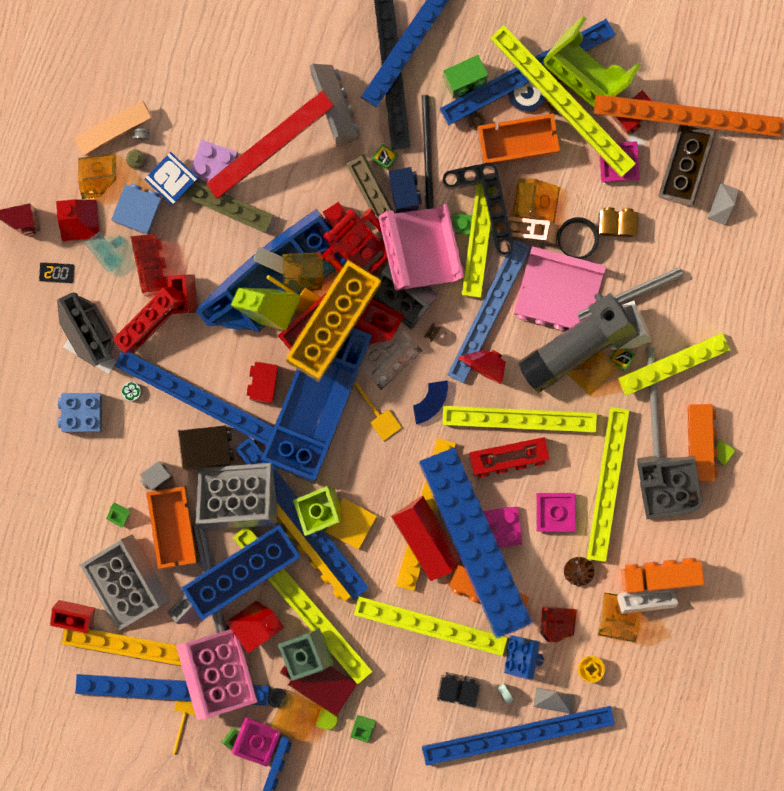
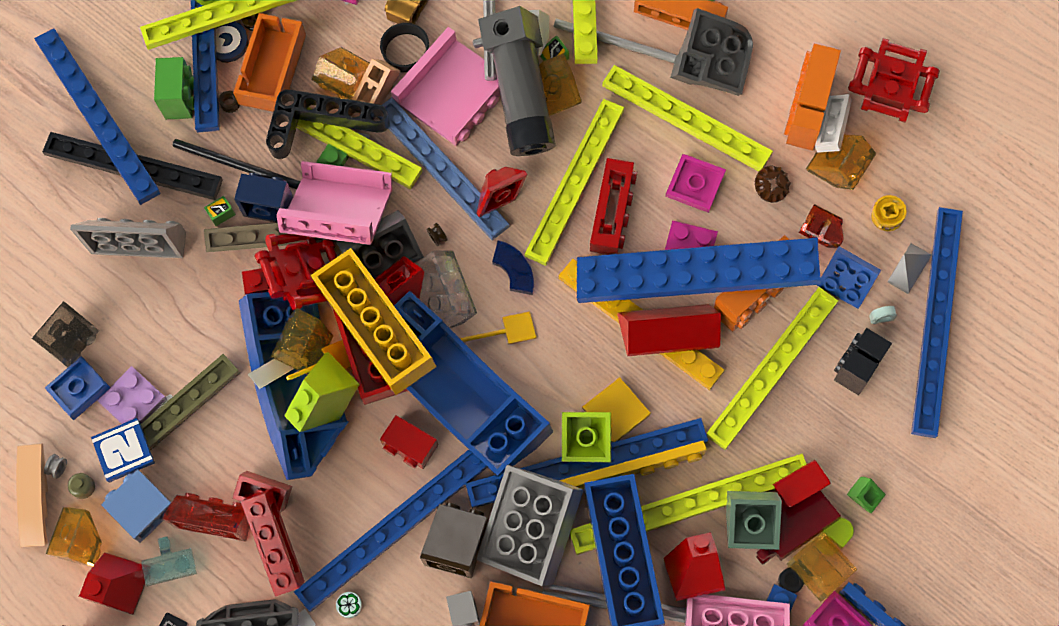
camera: 65 degrees left, 15 degrees down
(204, 120) = (77, 388): none -> blue tile
(237, 94) = (65, 334): none -> clear smoke slope
(270, 144) = (138, 314): red tile -> none
(347, 679) = (801, 484): none -> red slope
(705, 634) = (893, 80): none -> red brick

